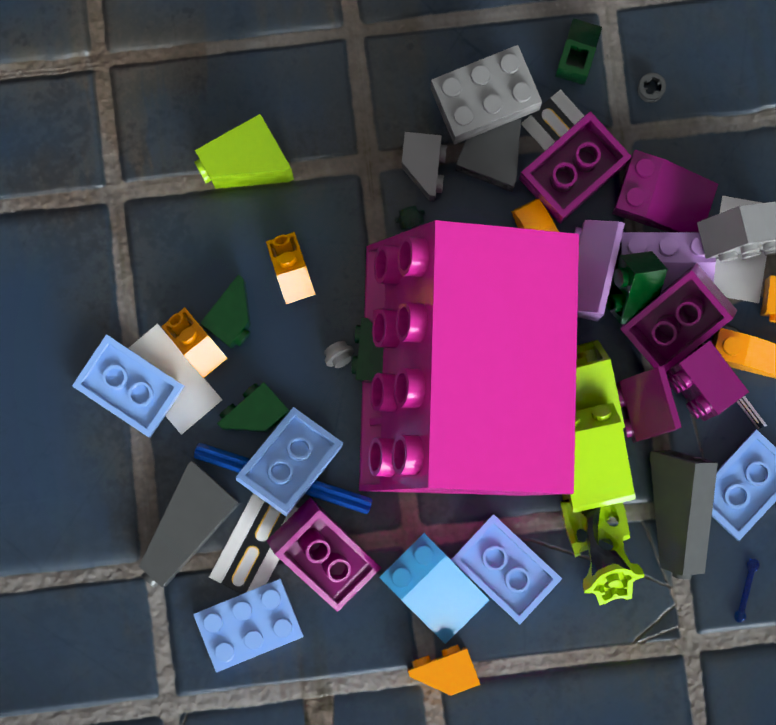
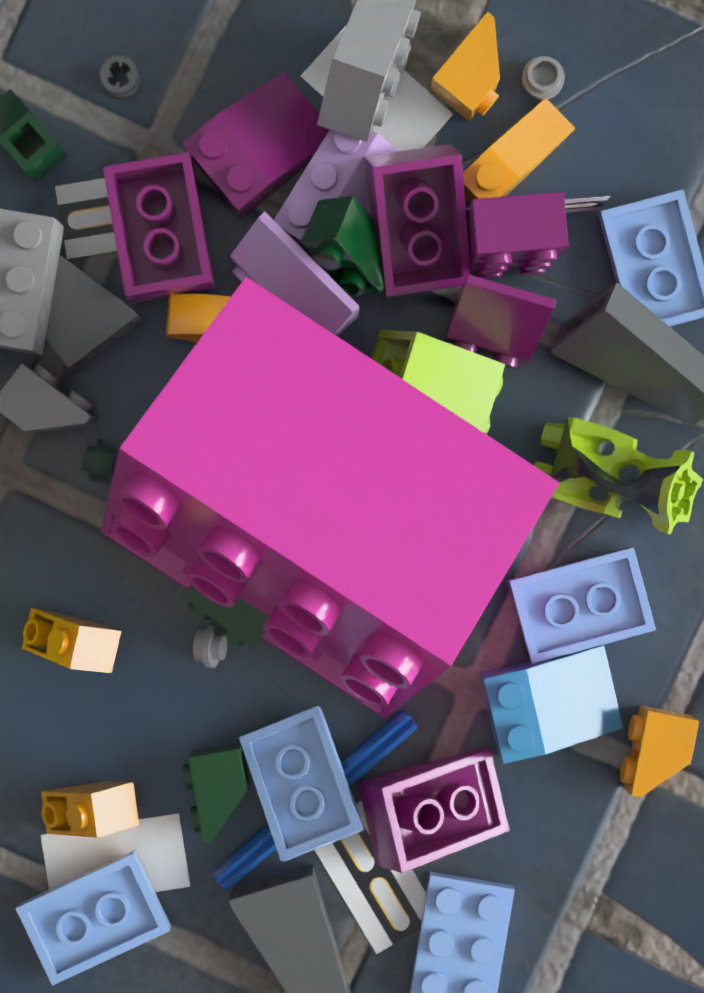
camera: 60 degrees left, 5 degrees up
(230, 315) = (83, 745): dark green slope -> none
(601, 460) = (528, 418): lime slope -> none

